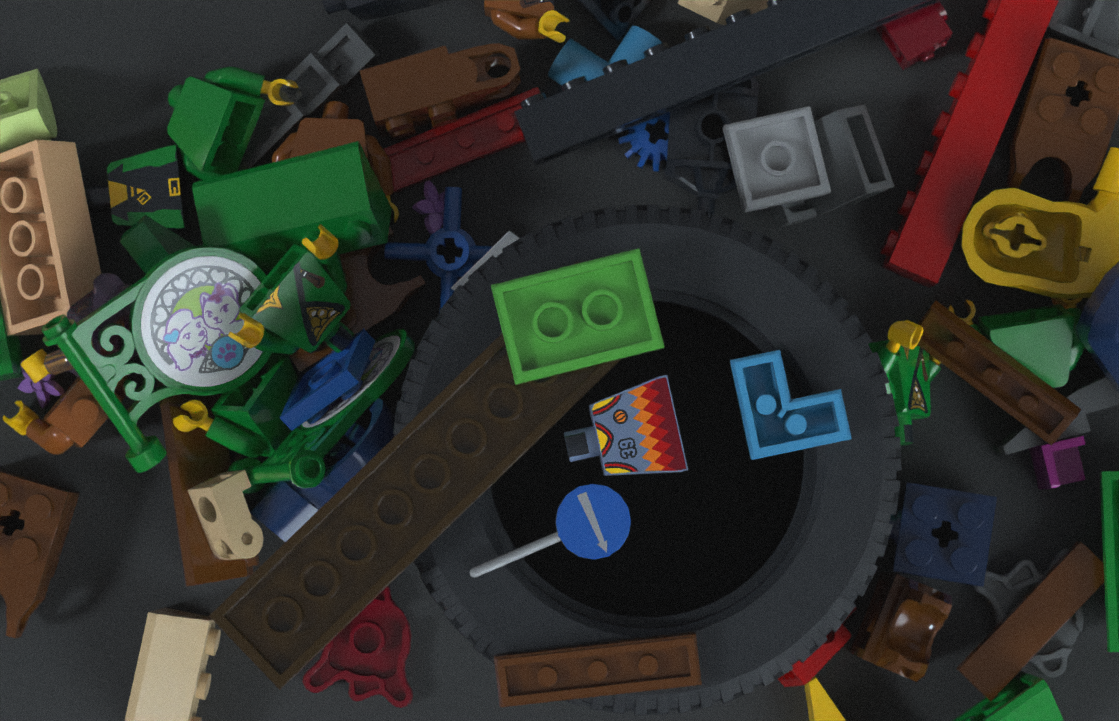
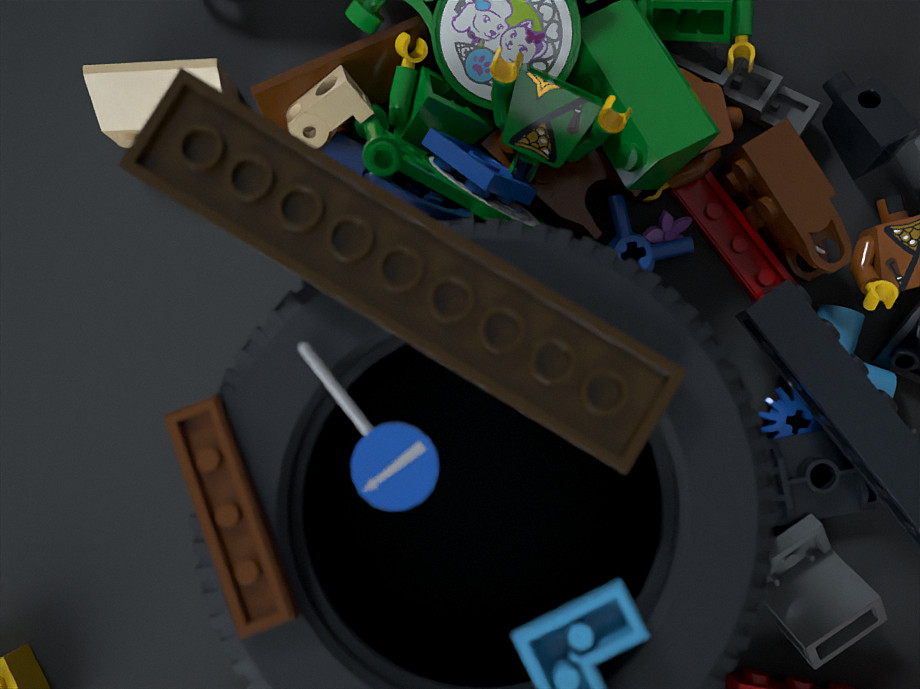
camera: 85 degrees right, 0 degrees up
(368, 655) = (237, 281): dark red tile -> none
(577, 316) = (624, 389): bright green tile -> none
(632, 432) = (507, 488): torso -> none
(776, 159) = (815, 548): light grey tile -> none

